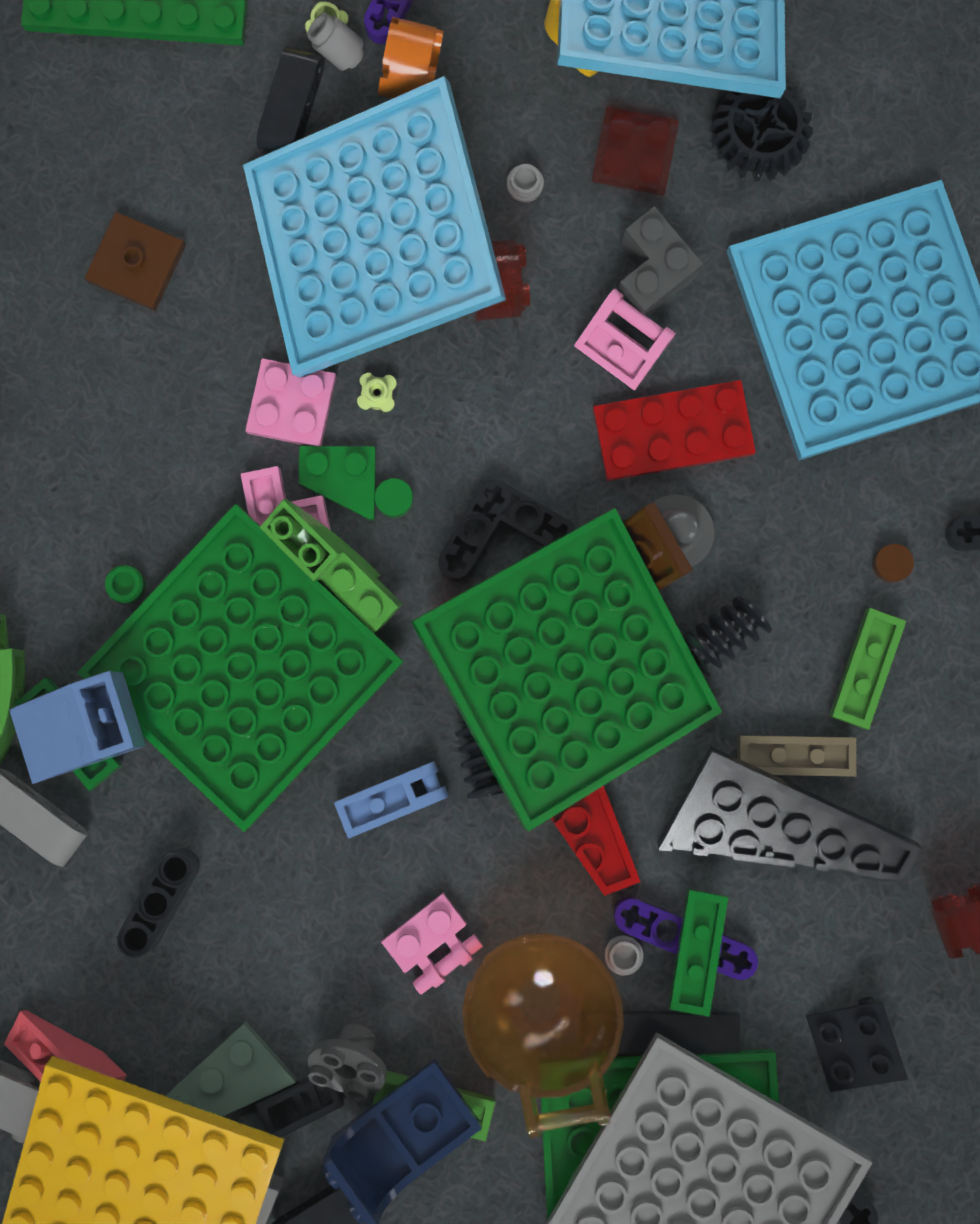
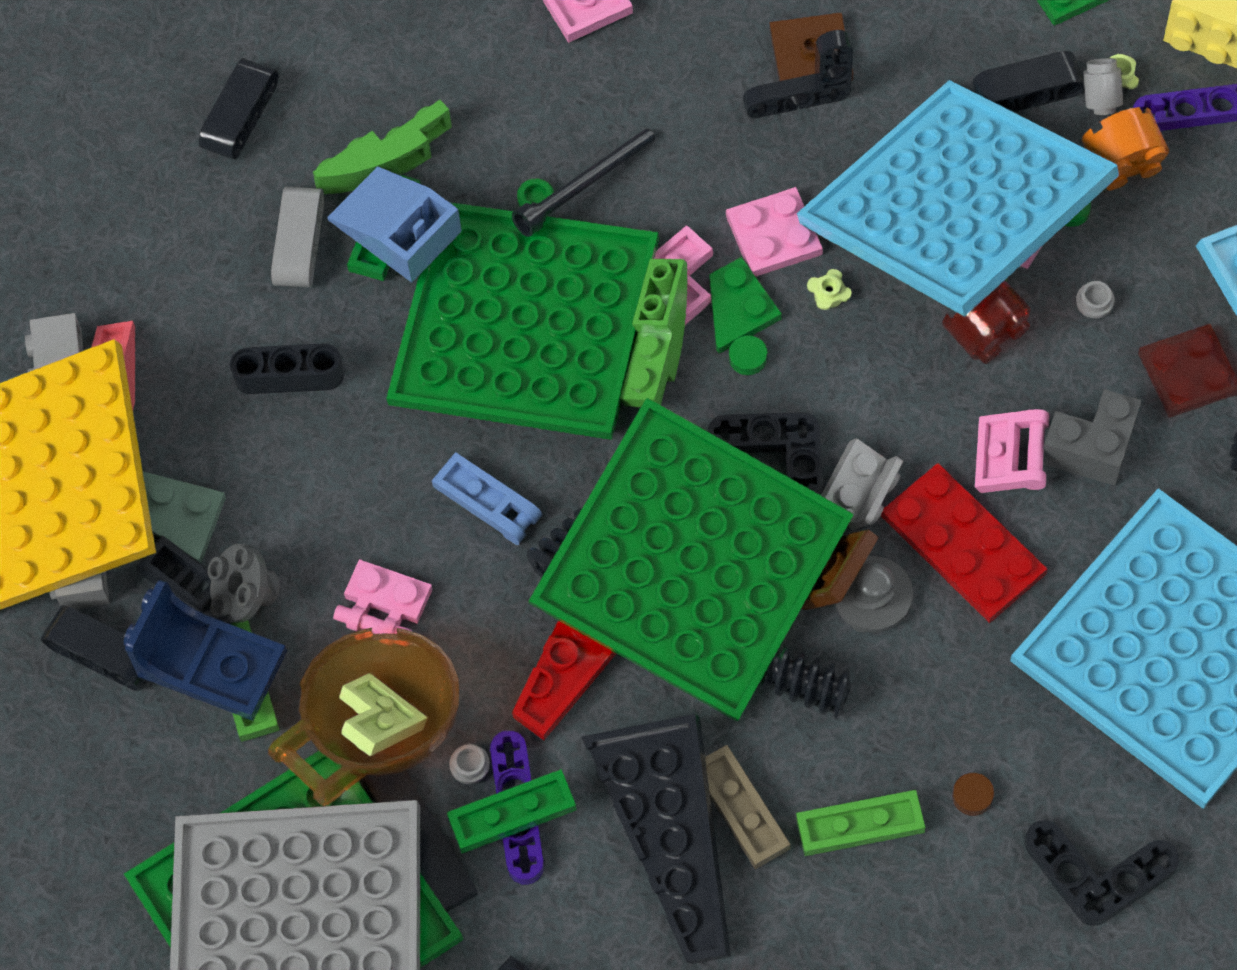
camera: 65 degrees right, 20 degrees down
(150, 604) = (530, 217): none -> black piece
(181, 263) = (827, 85): none -> black beam
(554, 1010) = (381, 717): none -> yellowish green plate
(577, 481) = (862, 482): none -> light grey bracket

